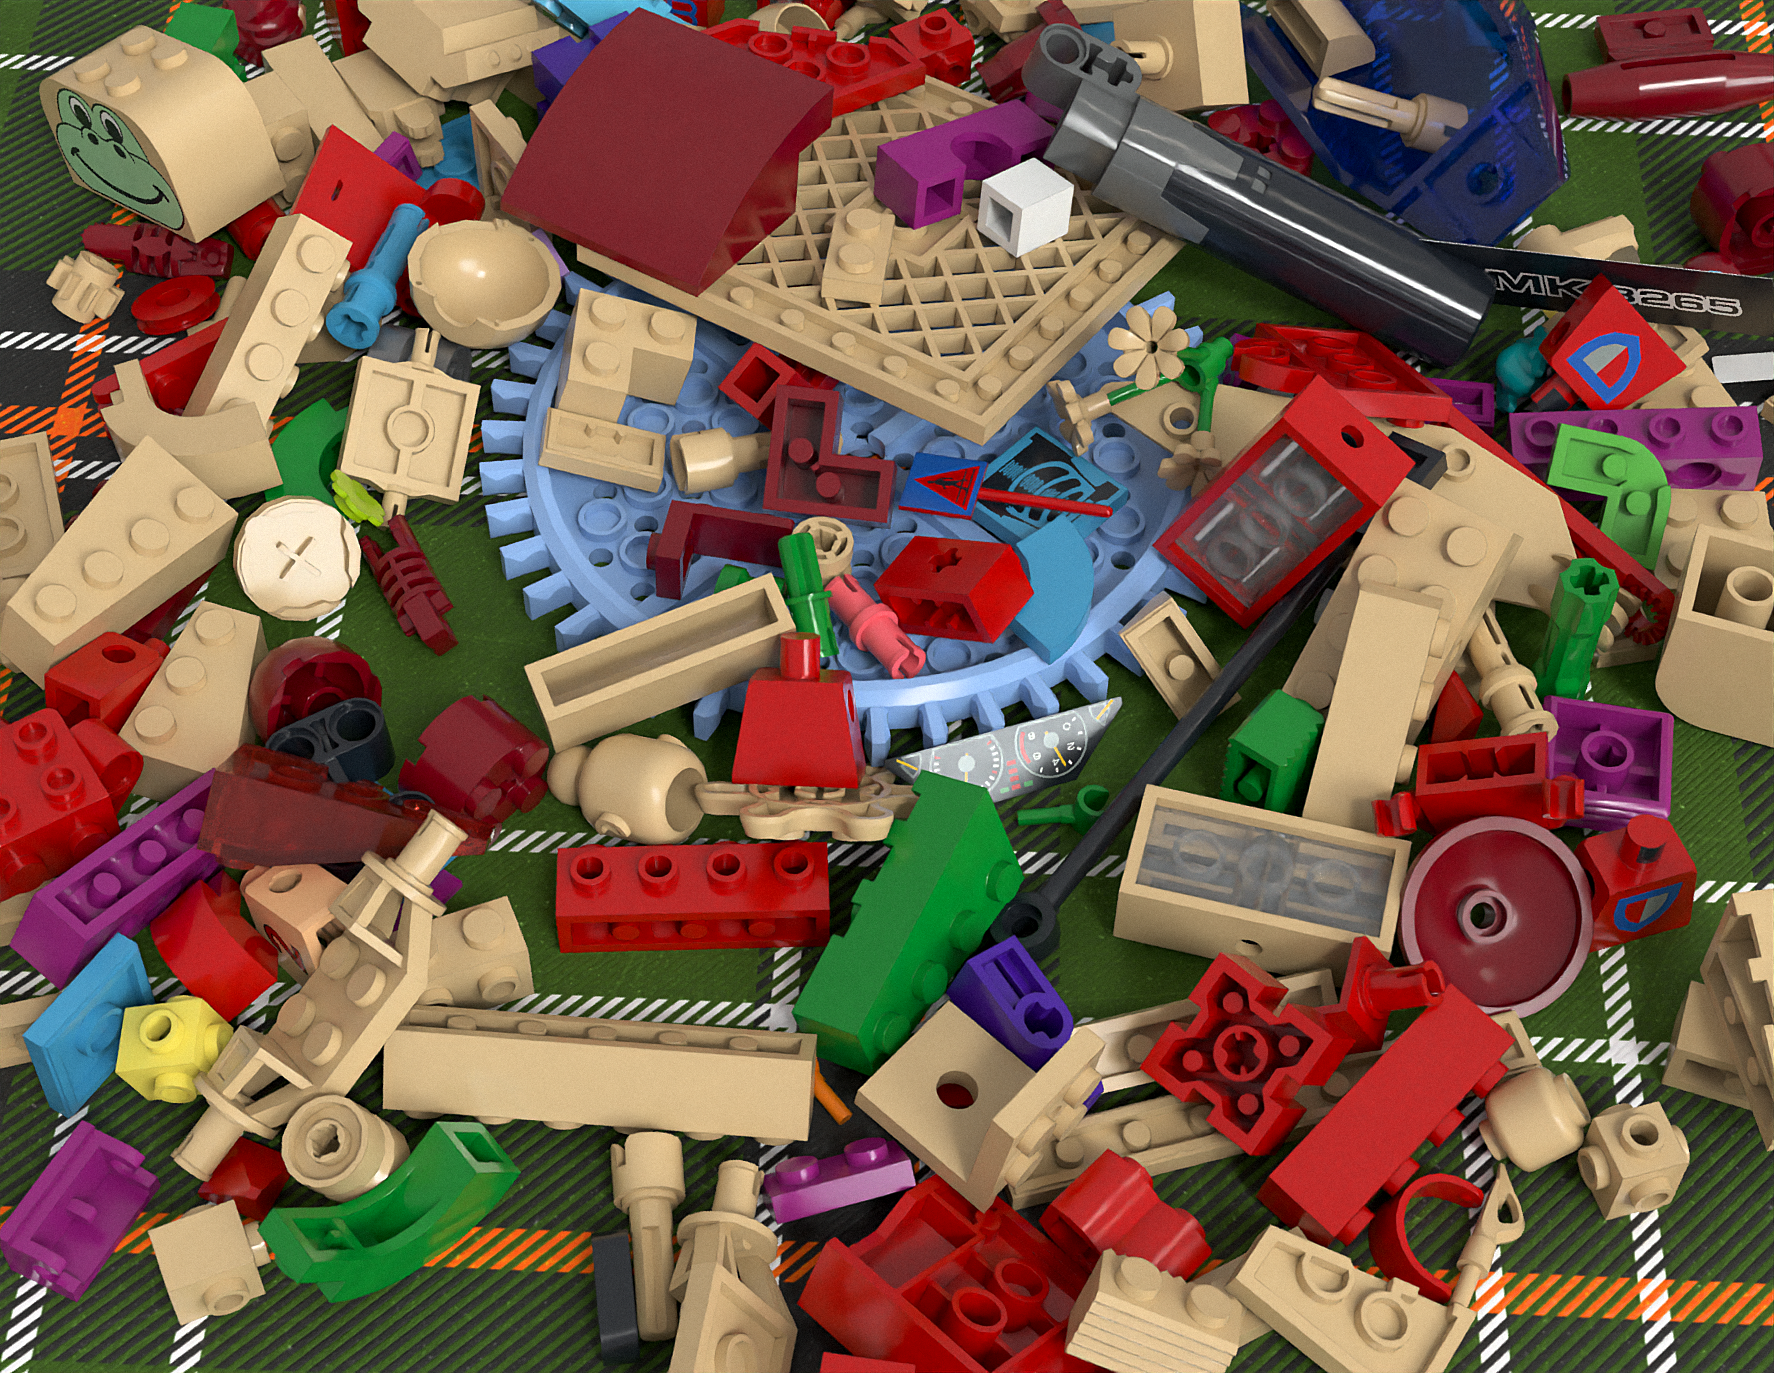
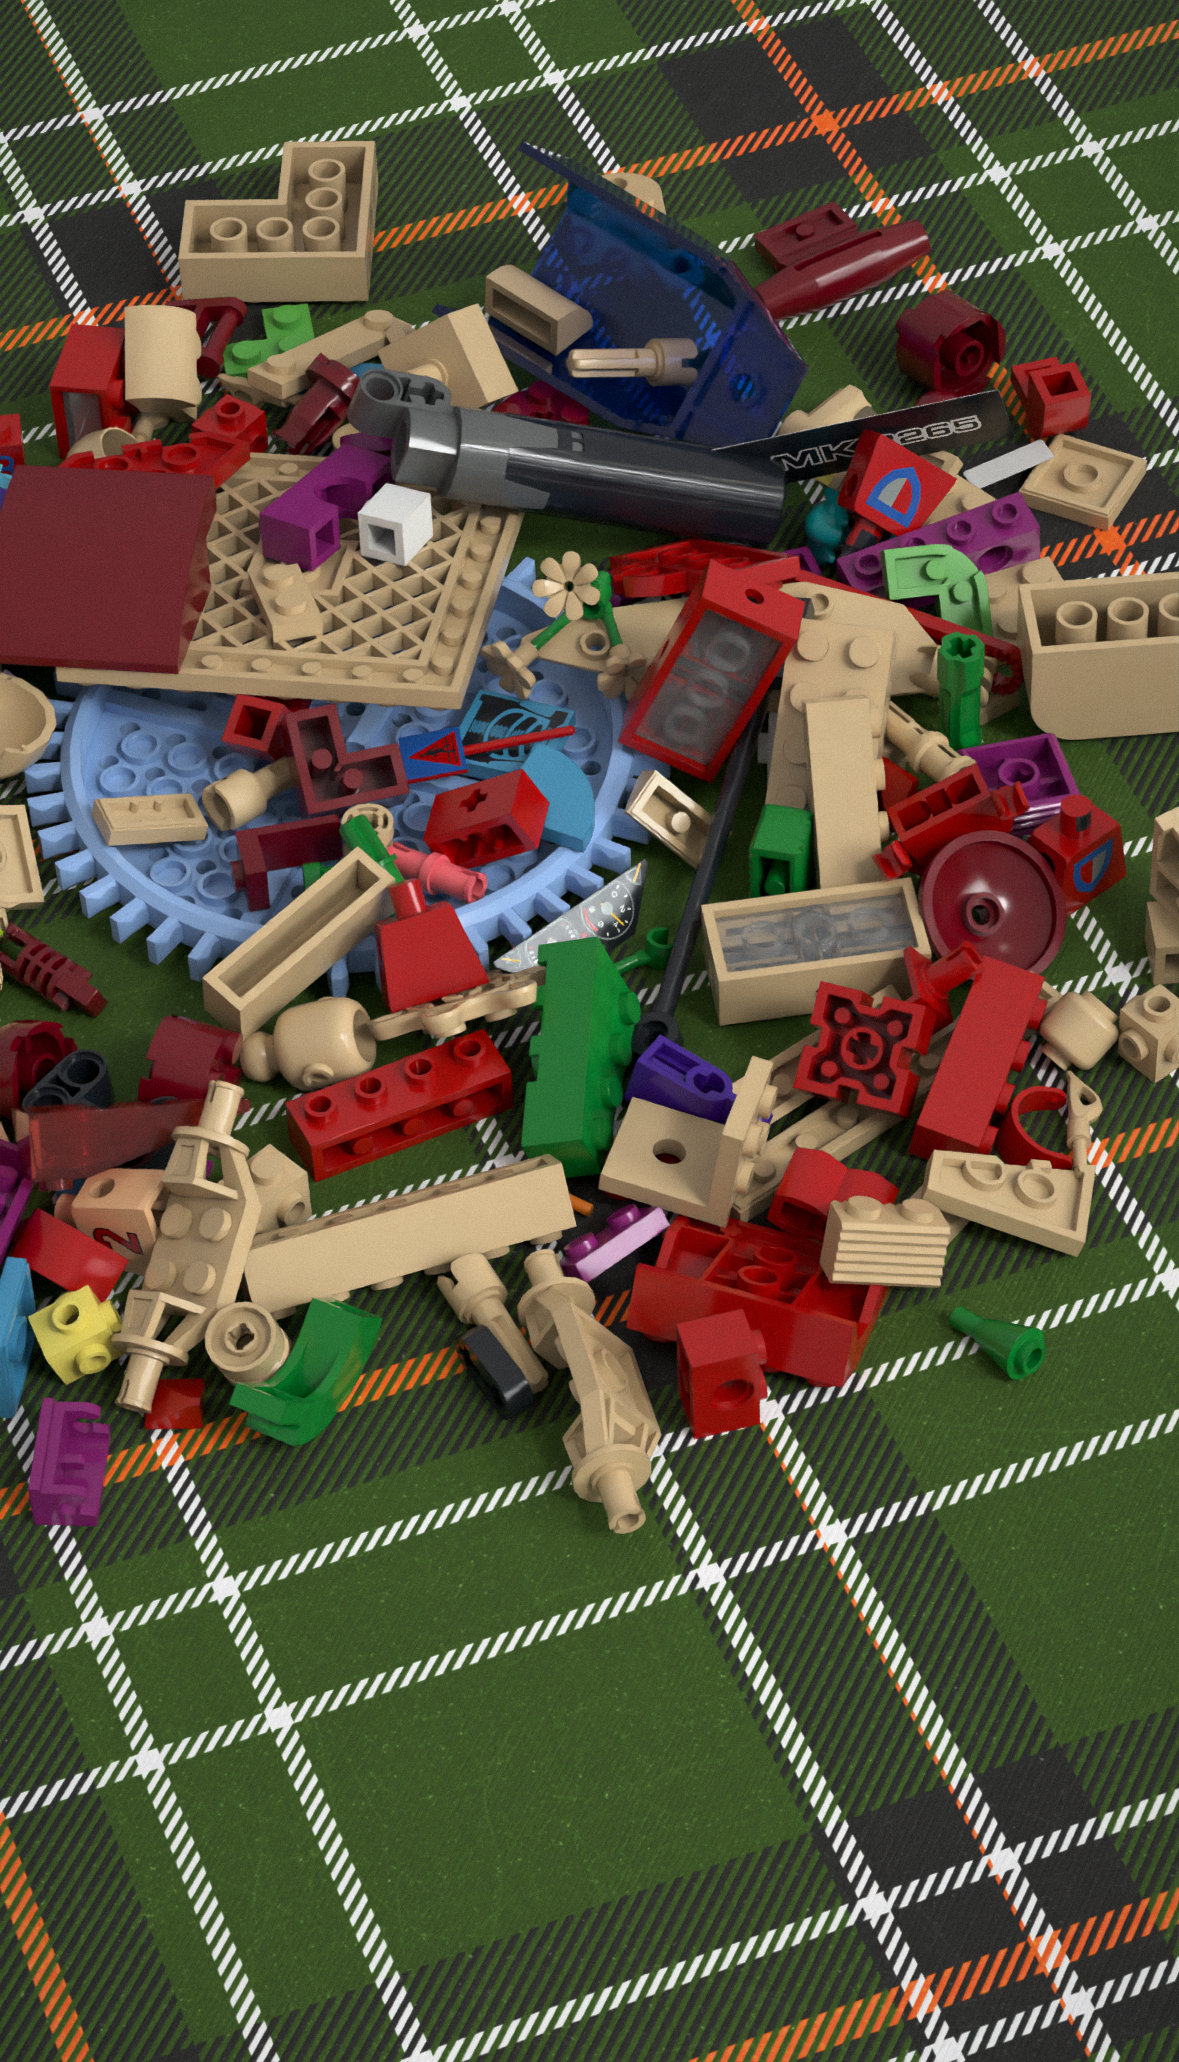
camera: 20 degrees left, 5 degrees down
(210, 1261) = (186, 1457): tan brick -> none
(622, 350) = (127, 742): tan brick -> none

